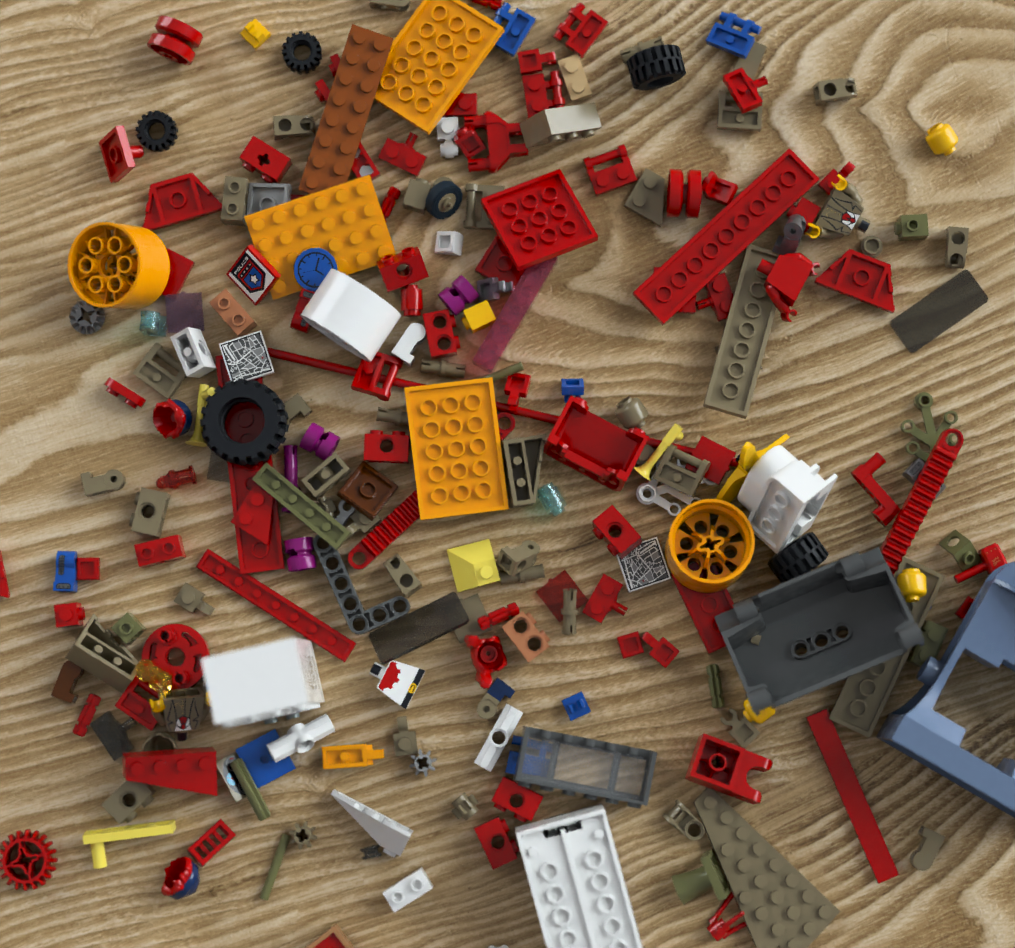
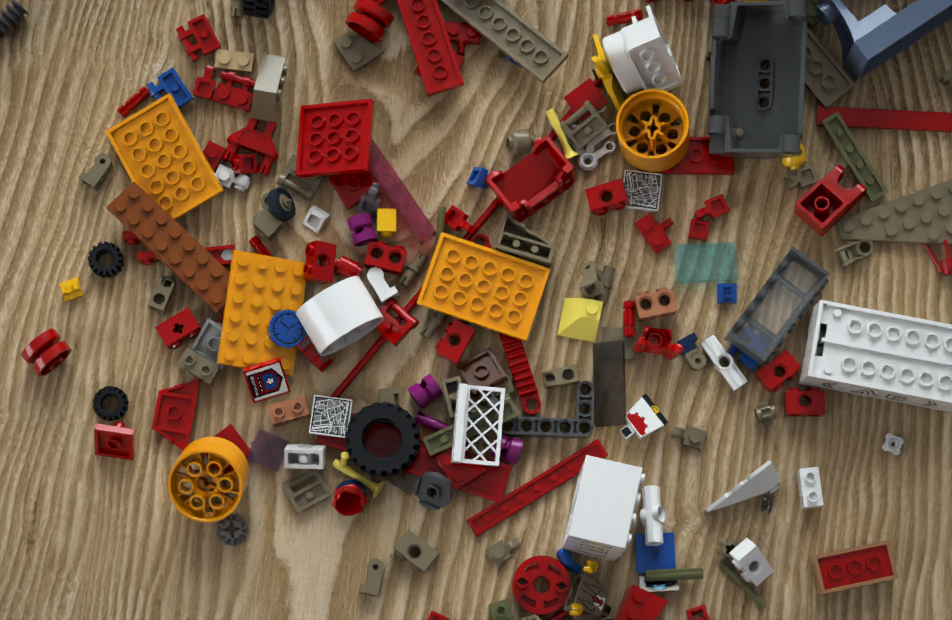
camera: 65 degrees left, 5 degrees down
(131, 397) = (316, 523): red plate -> none
(153, 324) = (265, 478): clear light blue leg -> none
(158, 679) = (554, 603): clear yellow plate -> none
(160, 551) = (451, 557): red brick -> none
(173, 479) = (399, 520): clear red piece -> none
(228, 505) = (440, 483): none -> dark grey plate
(296, 494) = (460, 424): none -> white fence
(299, 863) = (751, 562): none -> white brick
(350, 756) = (684, 485): light orange hinge -> none
(403, 155) = (228, 220): red plate -> none
(416, 764) = (715, 435): light grey gear -> none
(551, 499) = (558, 234): clear light blue brick -> none
(553, 594) = (636, 263): clear red piece -> none
(569, 611) = (651, 262): dark tan pin -> none
(598, 668) = (705, 262): none -> clear light blue piece
(611, 177) = (326, 71): red plate -> none
(701, 880) = (905, 260): olive plant -> none
(715, 686) = (761, 181): olive axle -> none
(789, 773) = (854, 156): none -> olive plate
(798, 557) = (694, 69): black tyre -> none
(822, 457) = (623, 17): none -> red axle

